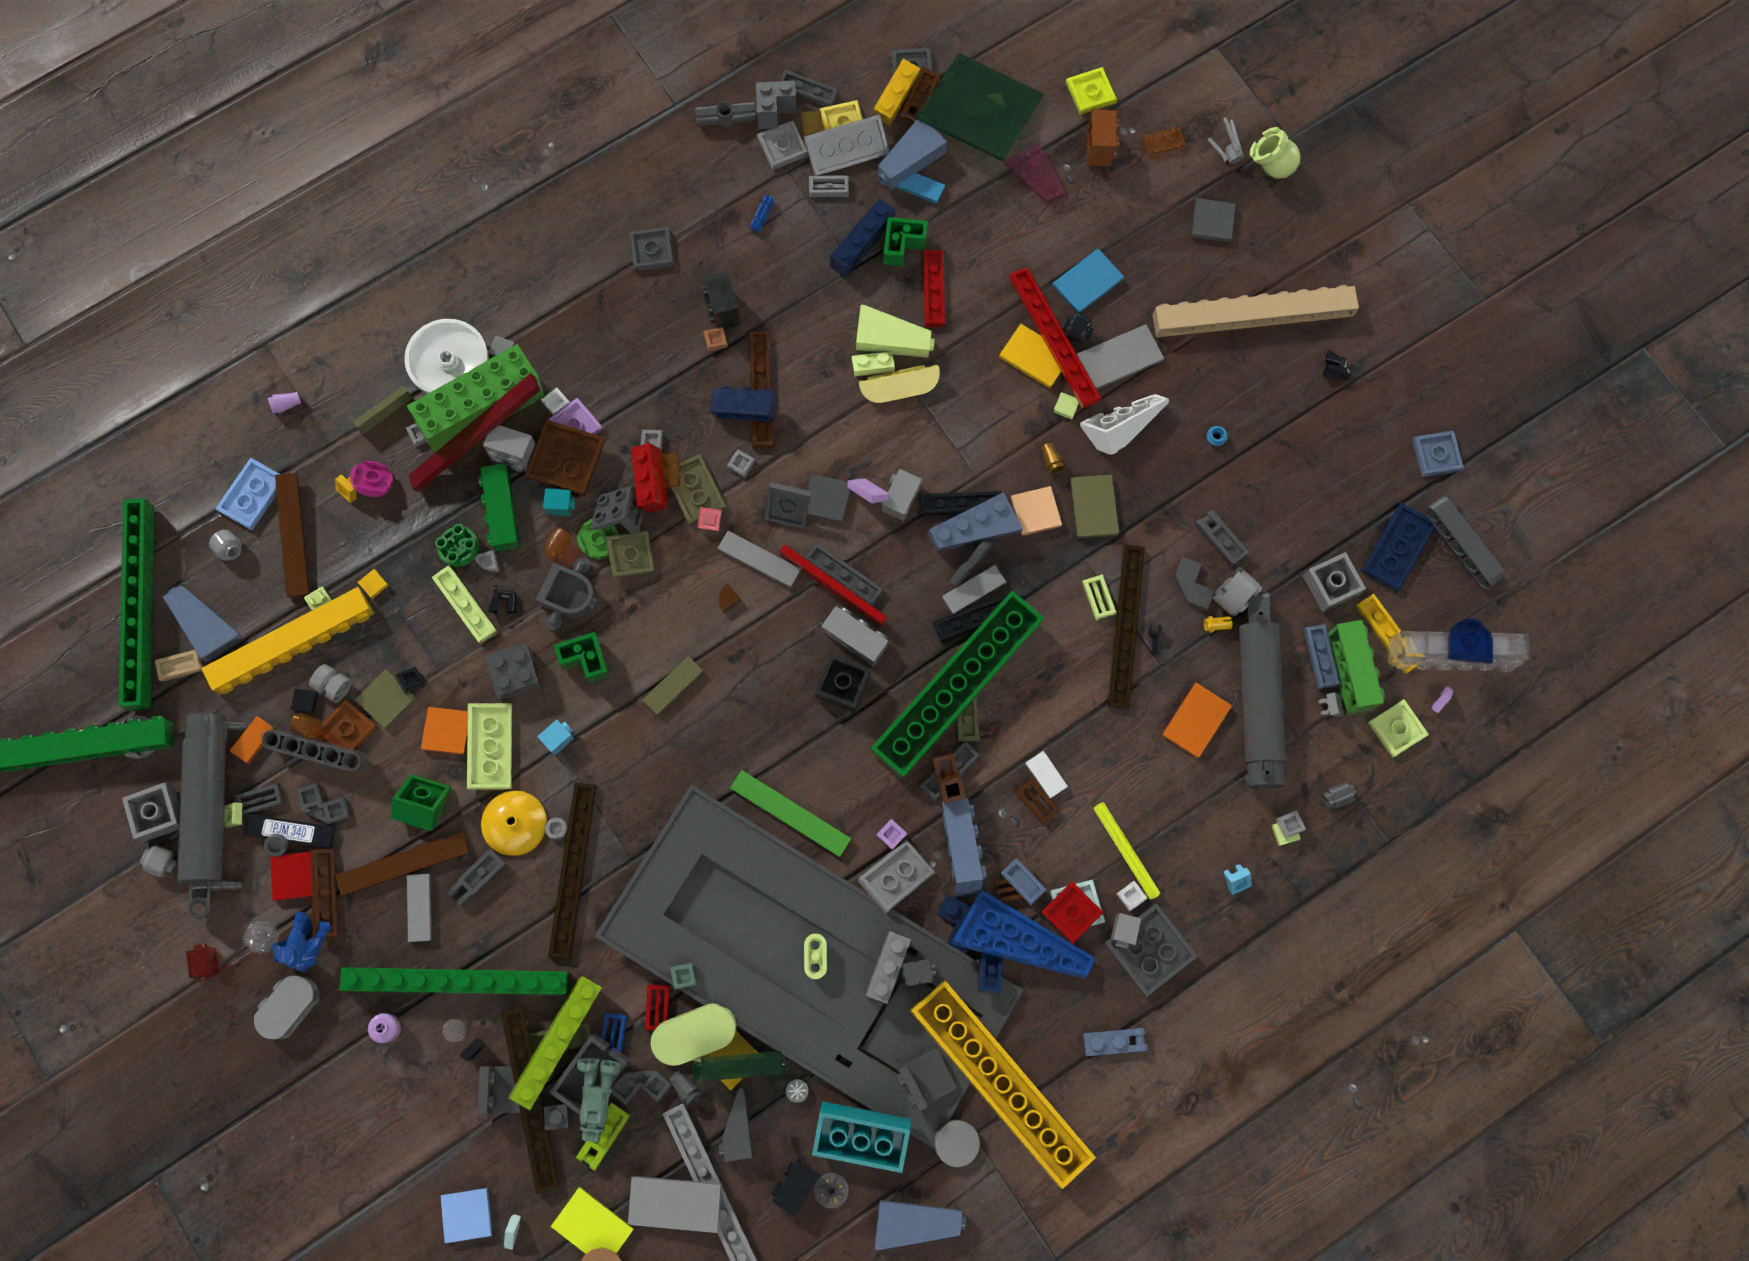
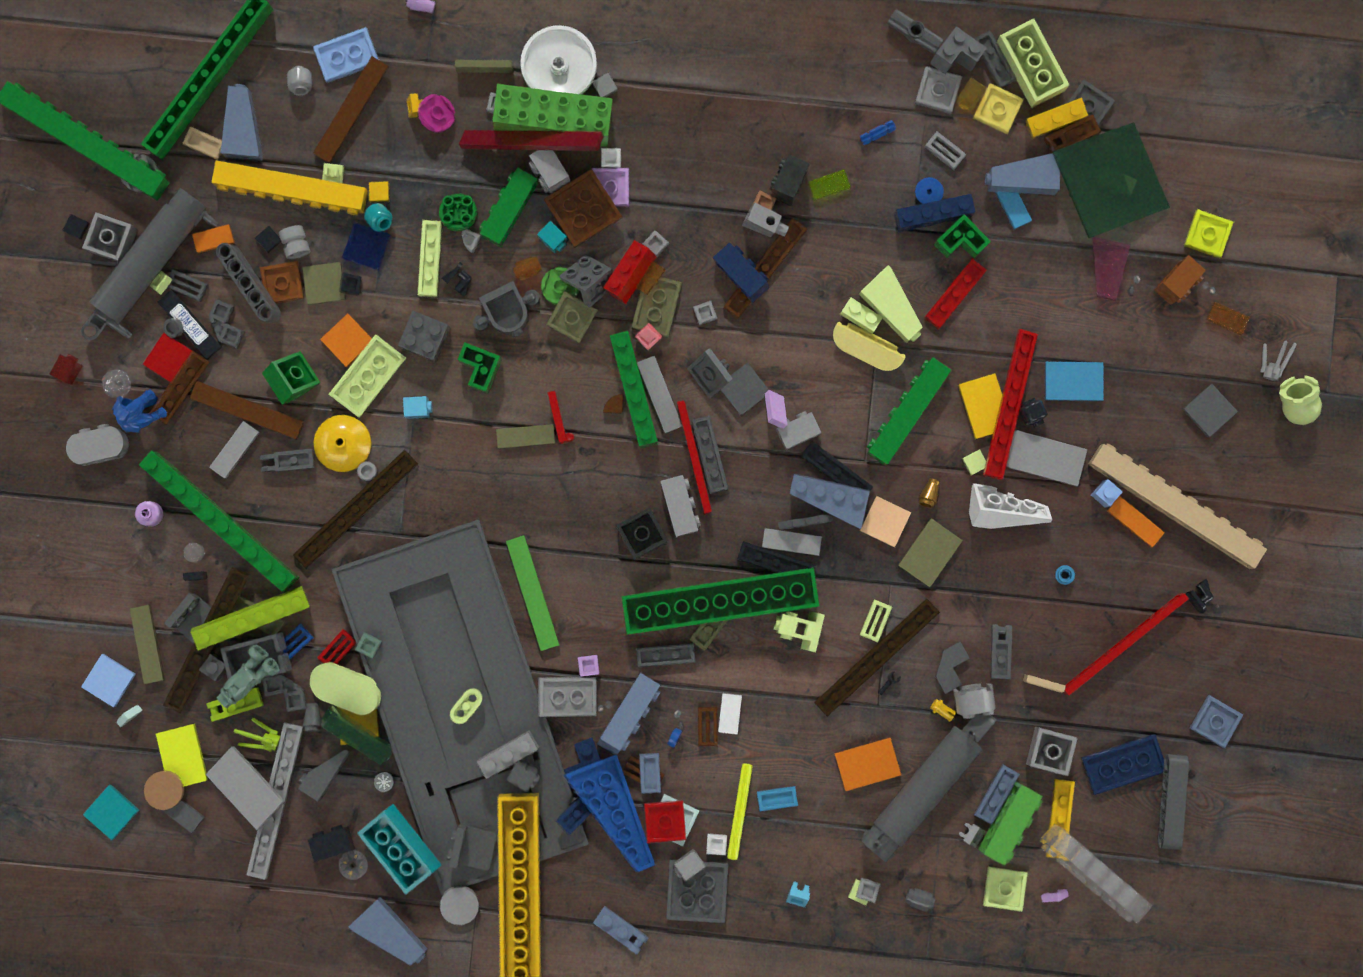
camera: 45 degrees right, 10 degrees up
(113, 829) = (75, 226): none -> black tile
(158, 861) = (88, 274): light grey head -> none
(306, 726) = (255, 259): clear orange brick -> none
(390, 603) = (378, 217): none -> teal head
(398, 638) = (366, 246): none -> clear blue tile
(476, 1151) = (147, 644): none -> olive tile
(651, 248) = (774, 95): dark grey tile -> none
(663, 1141) = (269, 741): none -> lime plant
(705, 659) = (562, 435): none -> red hinge
(728, 349) = (757, 219): none -> light grey torso
(734, 571) = (633, 389): none -> green brick
(757, 283) = (829, 184): none -> clear neon green tile
(841, 66) = (1033, 63): none -> yellowish green brick
(842, 224) = (929, 190): none -> blue piece
(846, 145) = (984, 130): light grey tile -> none
(948, 779) = (657, 661): reddish brown brick -> none
(978, 408) = (909, 411): none -> green brick
(1018, 833) = (674, 738): none -> blue tile
(1031, 658) = (787, 625): none -> yellowish green tile
(1148, 813) = (777, 798): none -> dark azure tile
(1192, 345) = (1106, 493): none -> light blue brick
(1233, 350) = (1135, 521): none -> orange tile
(1278, 534) = (1044, 683): none -> tan tile
(1312, 451) = (1125, 643): none -> red tile
(1470, 642) = (1103, 876): clear blue tile -> none

